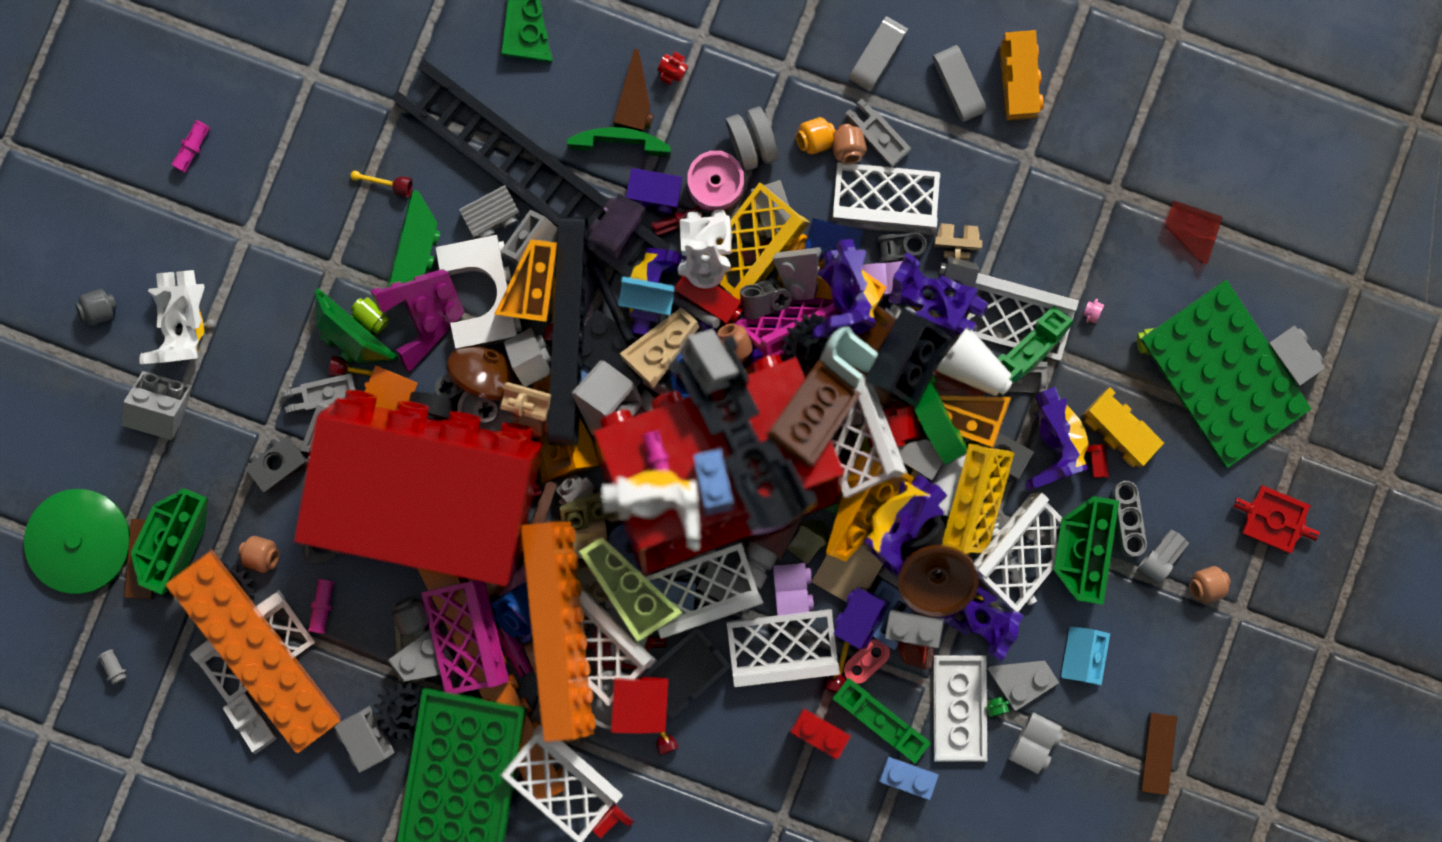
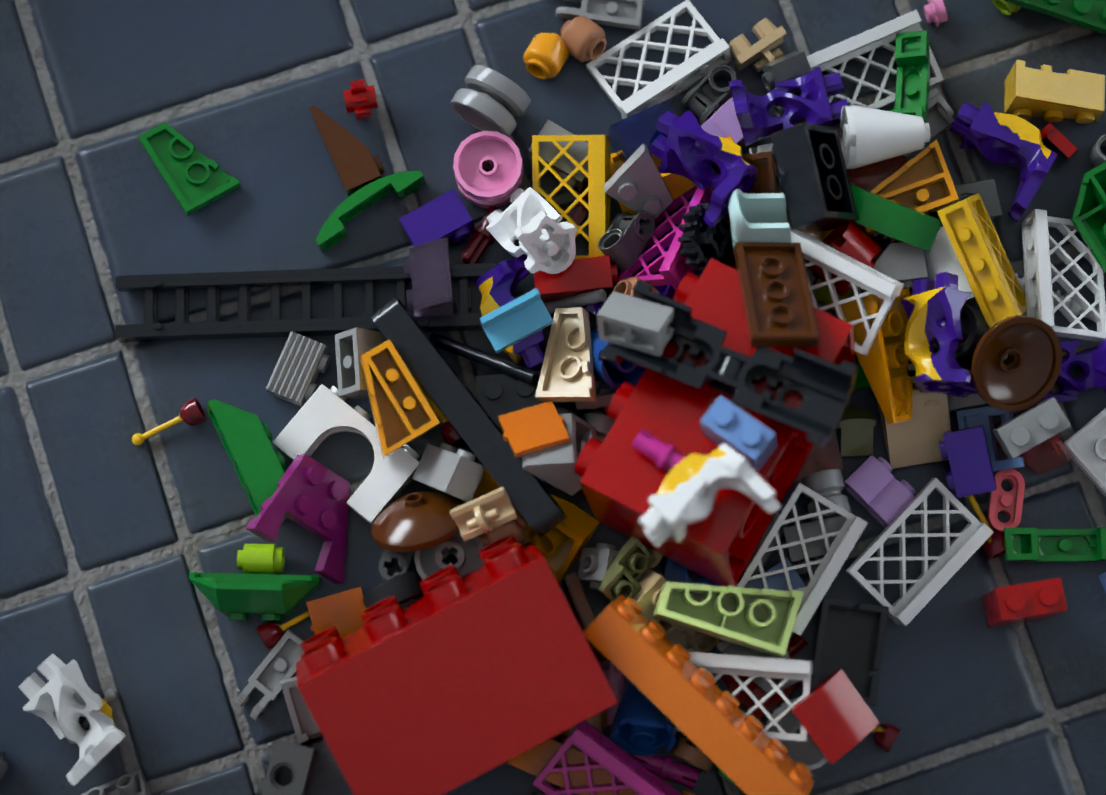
camera: 30 degrees left, 5 degrees down
(600, 373) = (533, 429): none -> orange piece

